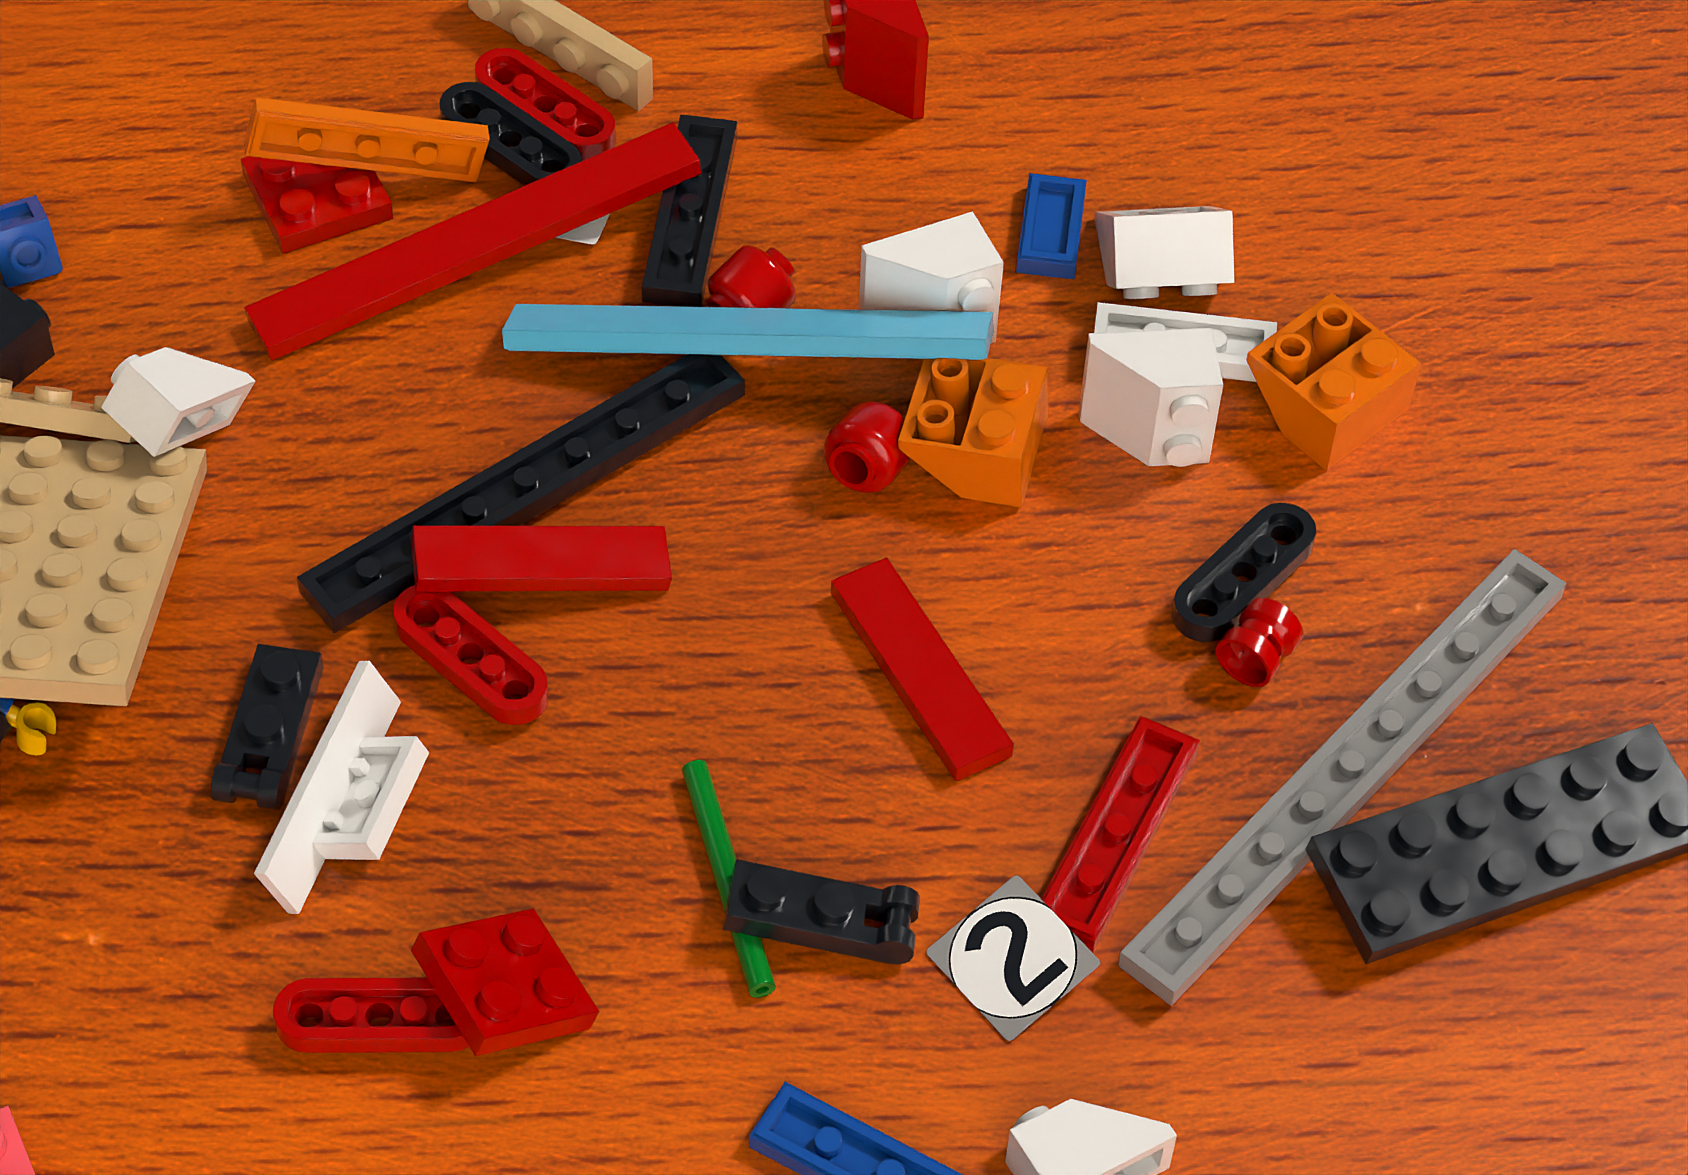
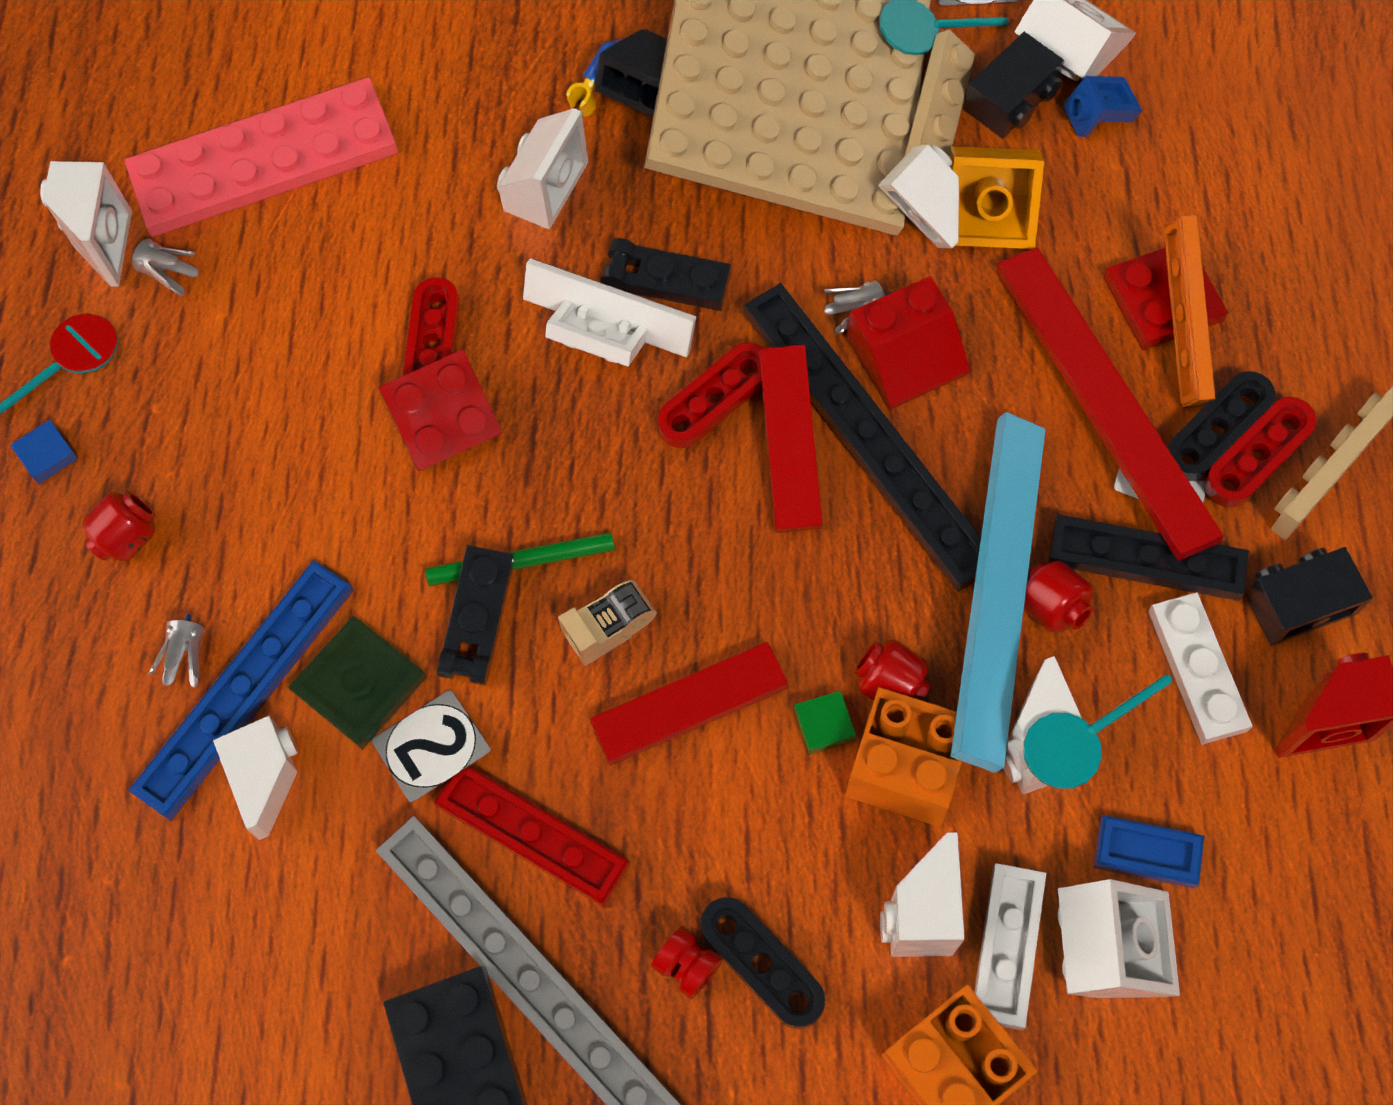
camera: 100 degrees right, 15 degrees up
(86, 868) = (545, 168): none -> white slope
(154, 312) = (998, 196): none -> light orange slope
(324, 485) = (852, 299): none -> flat silver piece
(388, 440) = (908, 342): none -> red slope
(733, 68) = (1307, 595): none -> black brick
(820, 759) = (607, 621): none -> tan leg
(824, 174) = (1199, 668): none -> white plate
(928, 1063) = (357, 682): none -> clear green tile
(931, 525) = (824, 722): none -> green tile
(969, 236) = (1066, 749): none -> teal piece

